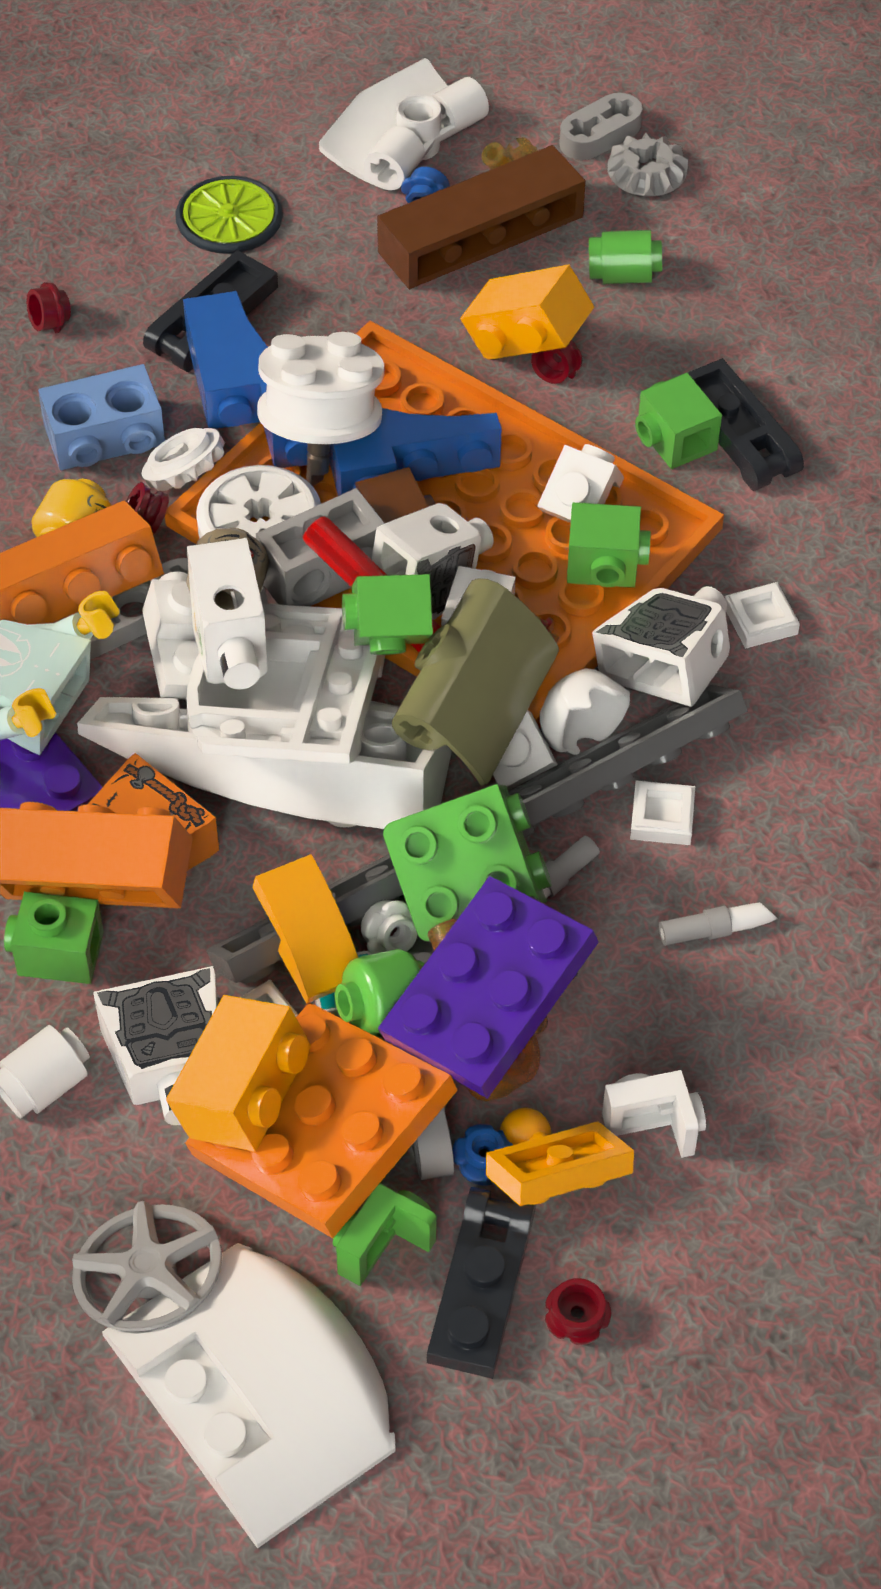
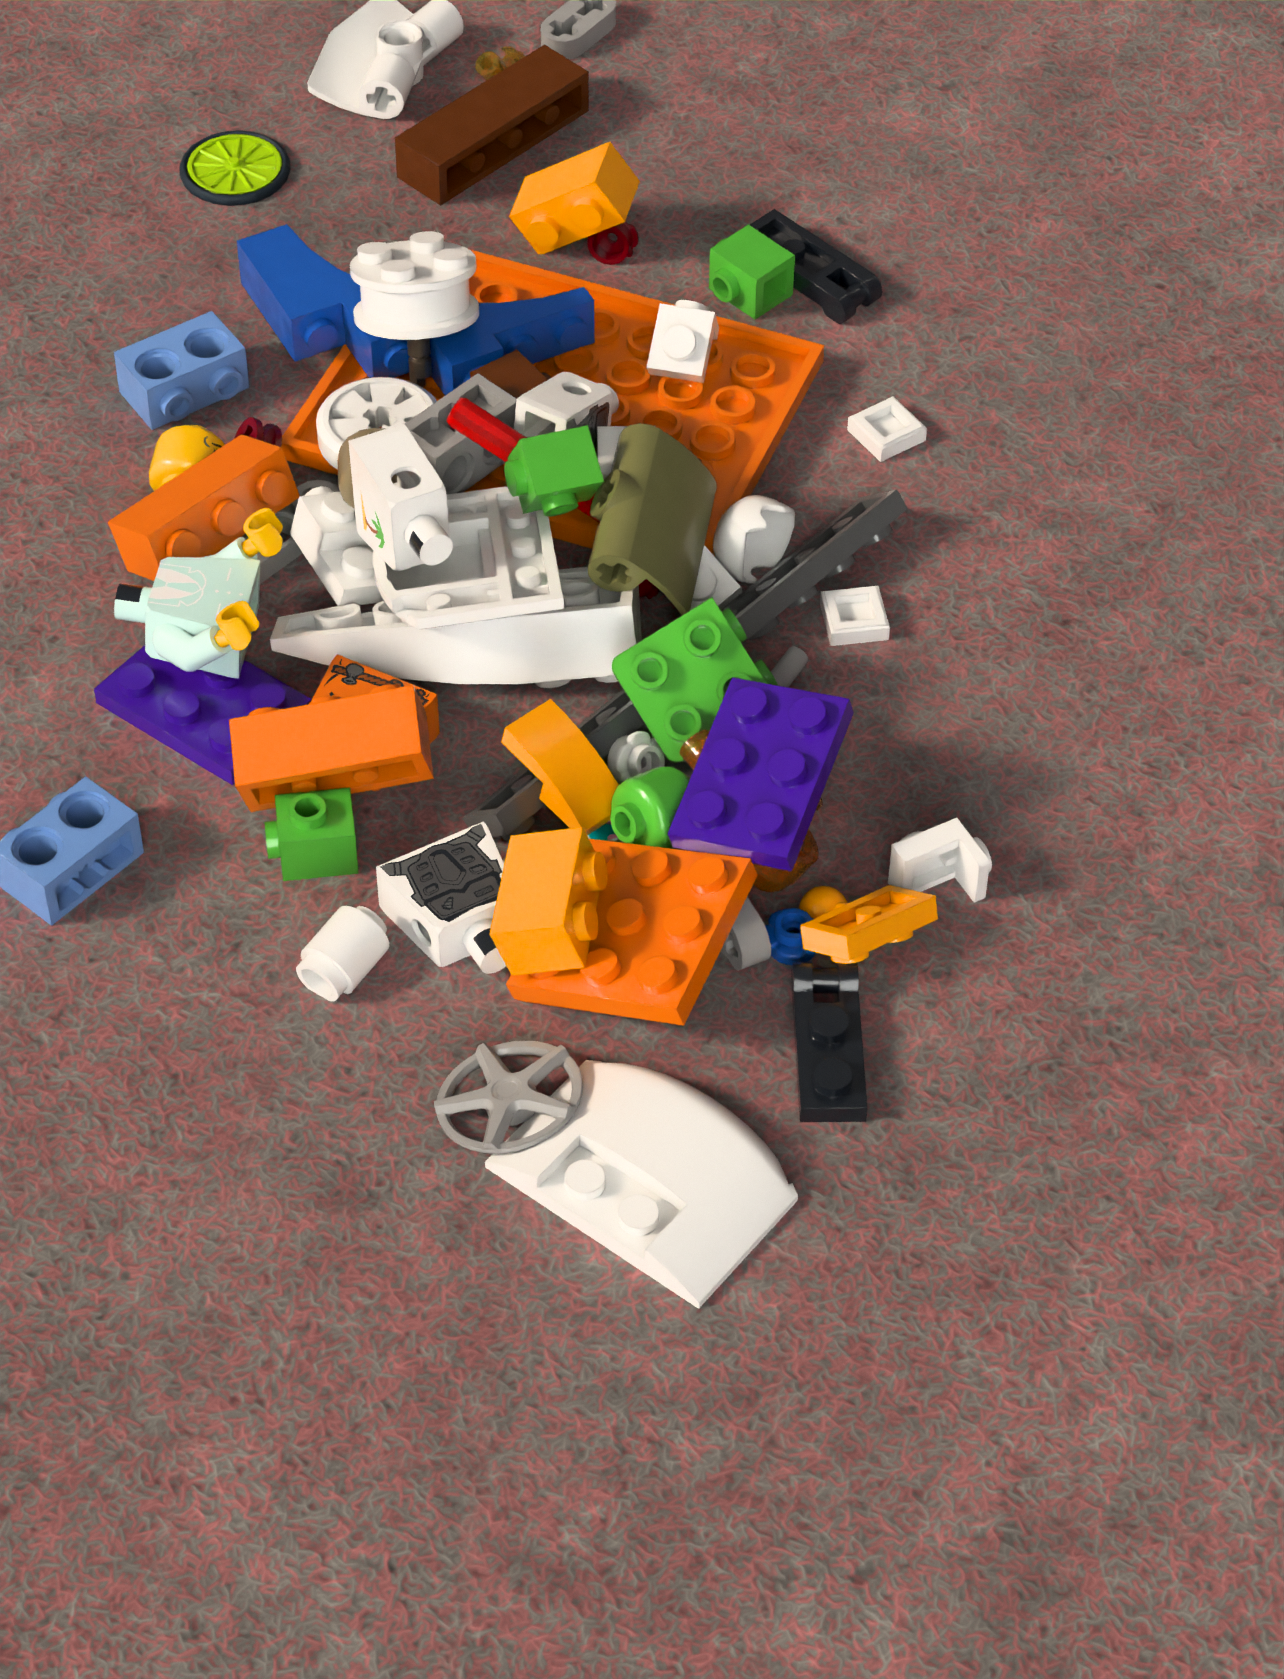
camera: 15 degrees left, 5 degrees down
(48, 307) = (86, 282): dark red plate -> none
(183, 458) = (279, 390): white gear -> none
(237, 273) = (263, 216): black plate -> none
(371, 1230) = (725, 1001): bright green bracket -> none
(423, 183) = (423, 103): blue plate -> none
(582, 1295) = (930, 1031): dark red plate -> none
(606, 545) = (726, 387): bright green brick -> none
(624, 257) = (647, 136): bright green brick -> none
(655, 177) = (652, 60): light grey gear -> none
(666, 643) = (811, 464): white torso -> none
(714, 923) = (936, 699): light grey piece -> none

